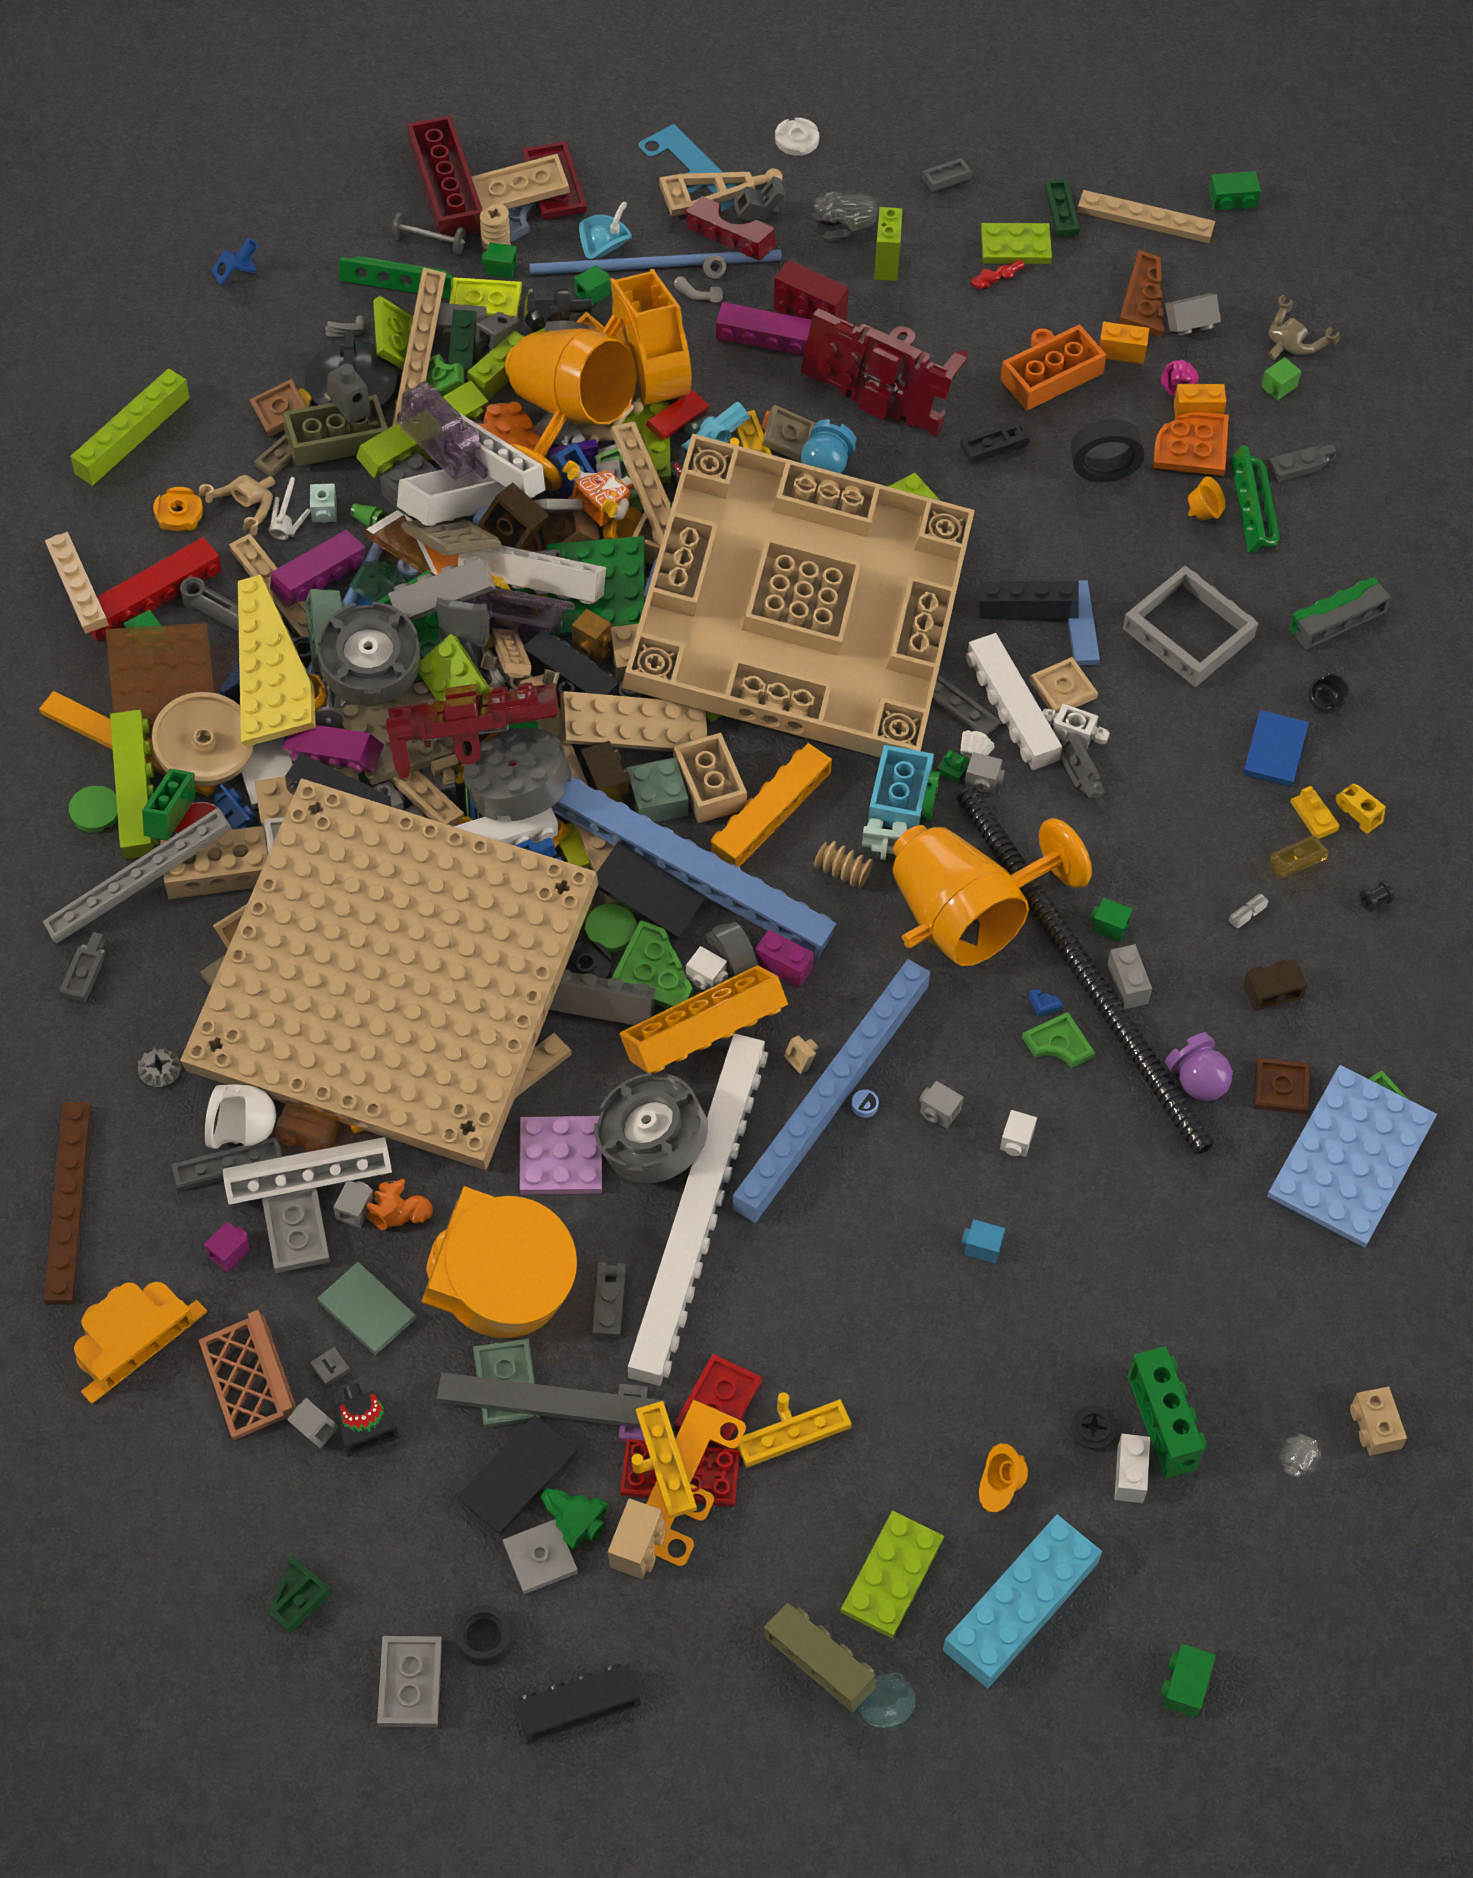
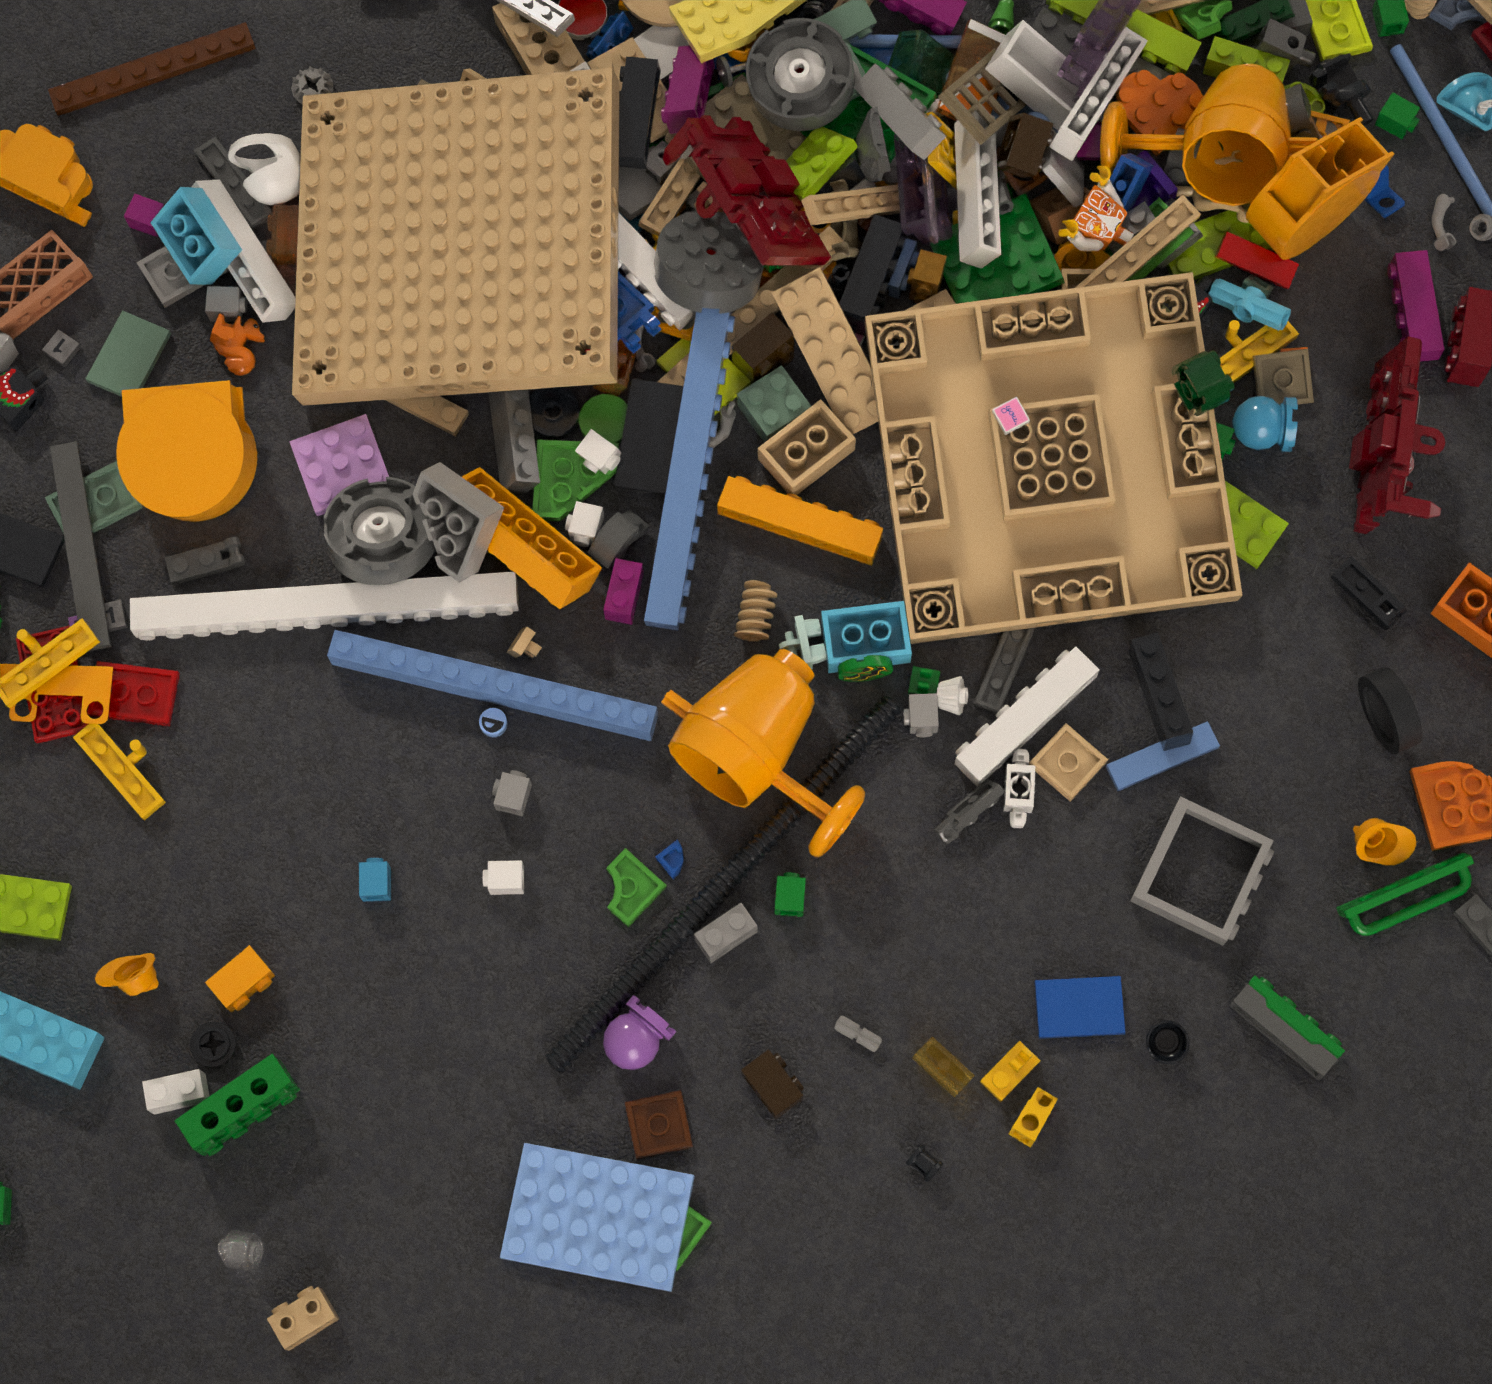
camera: 75 degrees right, 15 degrees up
(283, 1192) = (196, 236): none -> medium azure brick
(648, 931) = (598, 453): none -> white brick
(679, 1045) = (456, 519): none -> light grey brick
(760, 602) = (1010, 415): none -> bright pink tile
(795, 455) = (1202, 382): none -> dark green brick
(1040, 1382) = (240, 979): none -> light orange brick

